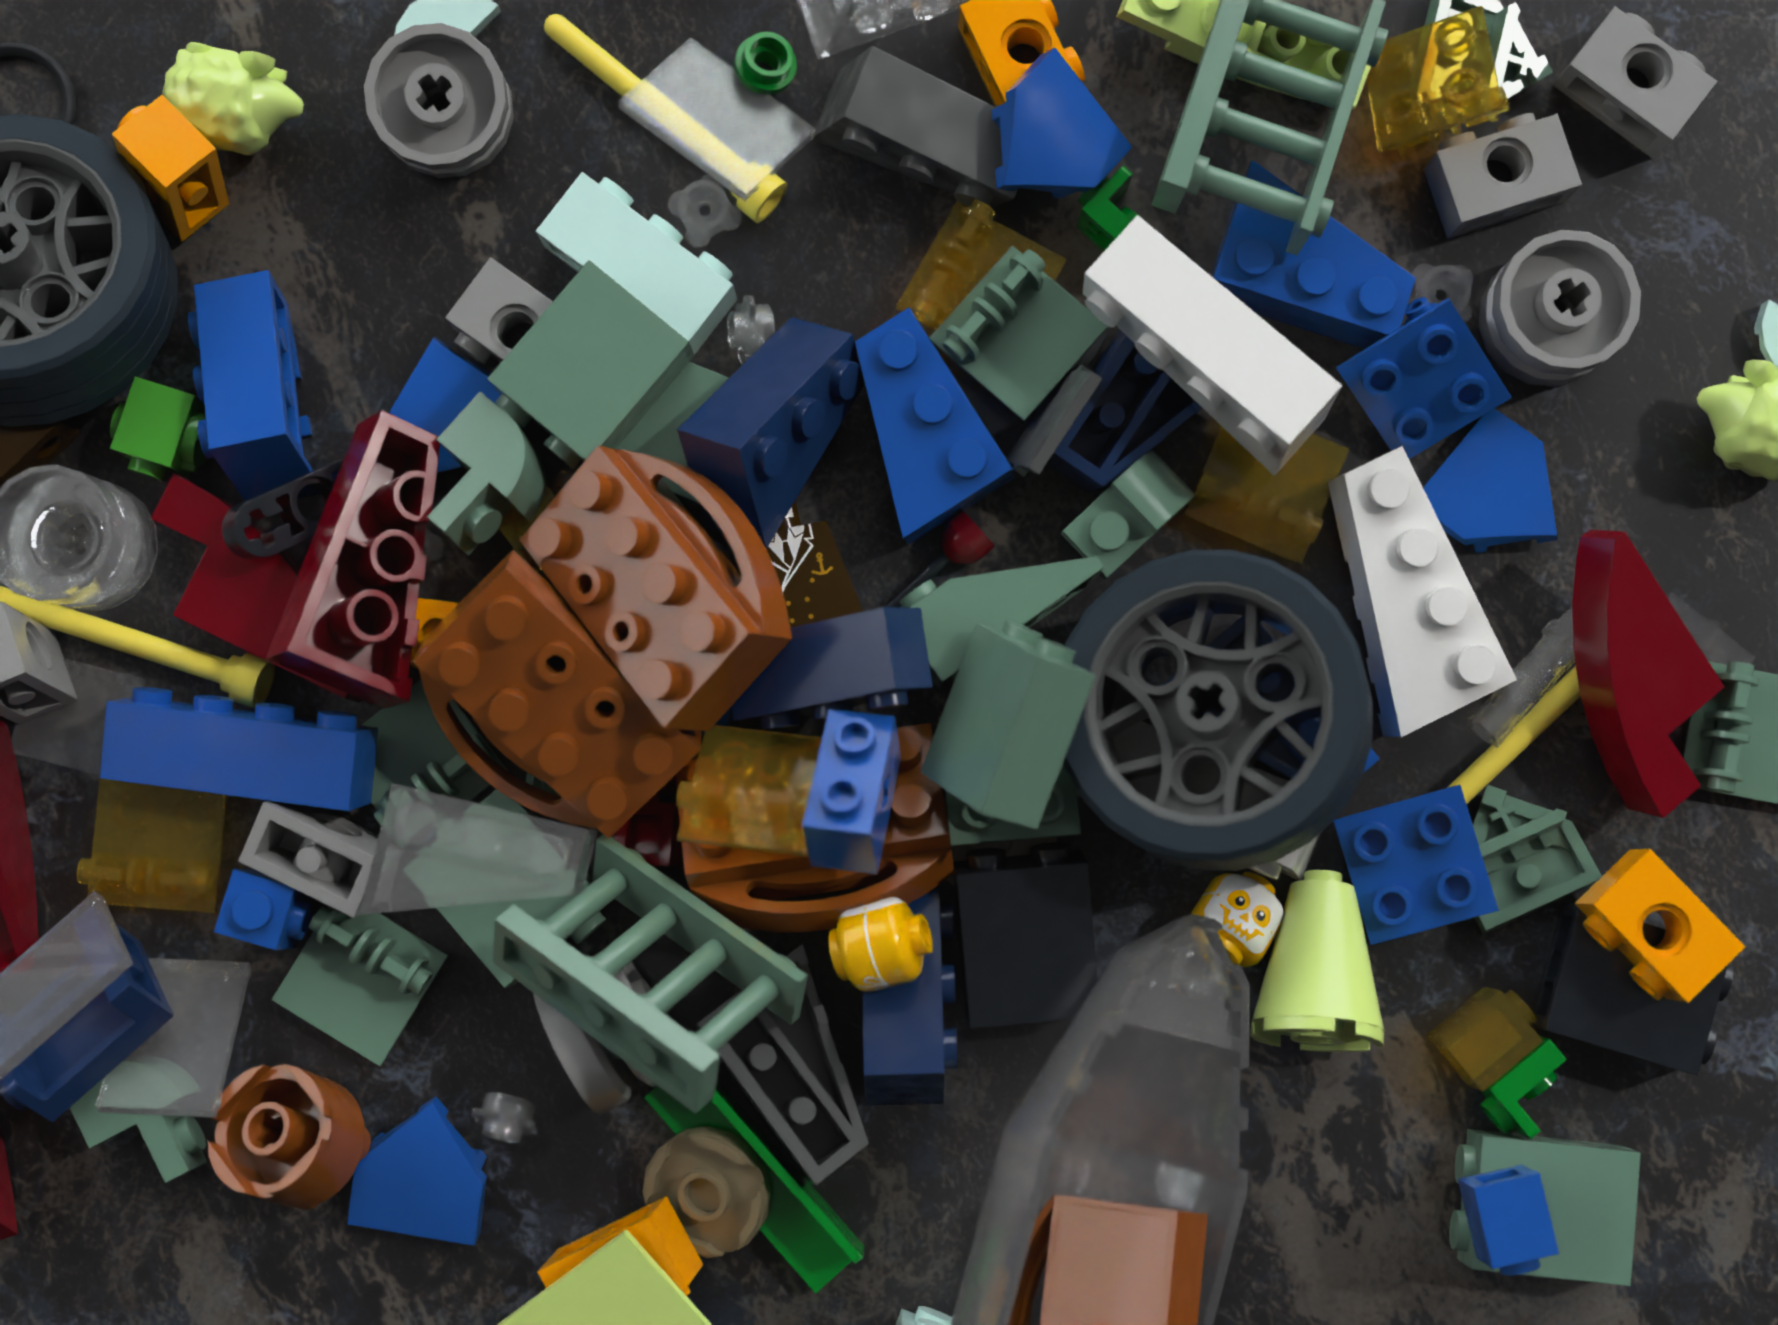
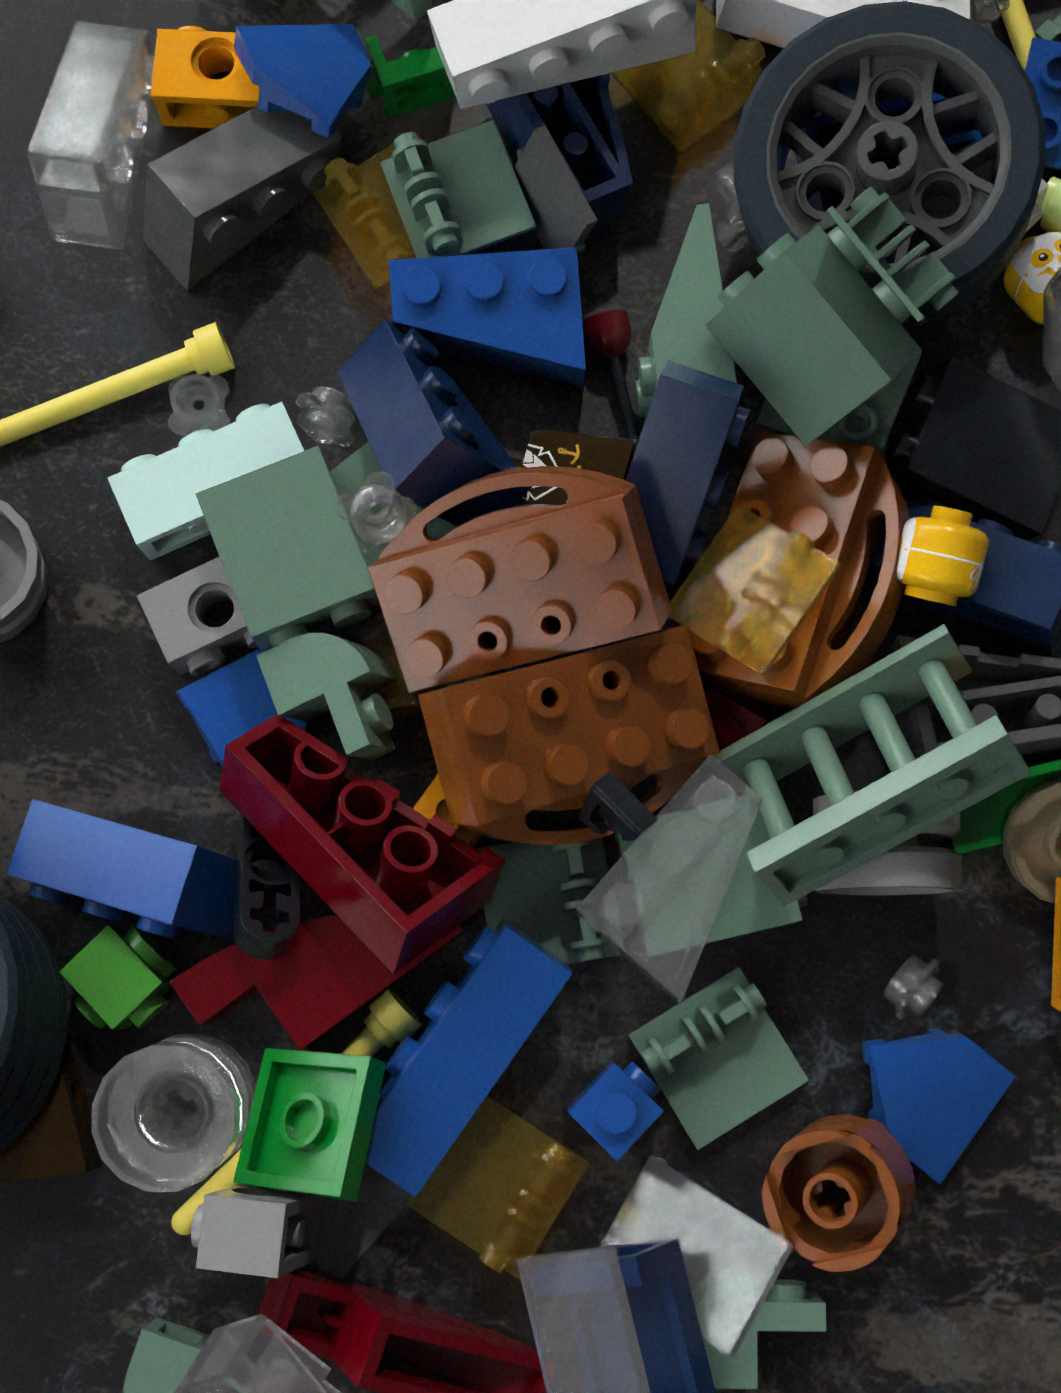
camera: 65 degrees left, 5 degrees down
(112, 657) = (310, 1123): none -> green plate
(312, 853) = (594, 1028): light grey brick -> none
(494, 767) = (615, 809): none -> black tile
(652, 425) = (382, 525): none -> clear plate
(716, 120) = (126, 349): clear piece -> none
(770, 49) = (101, 286): green plate -> none
(852, 791) = (804, 495): blue brick -> none
(1059, 775) = (873, 224): none -> sand green hinge
(1129, 512) = (663, 181): sand green brick -> none

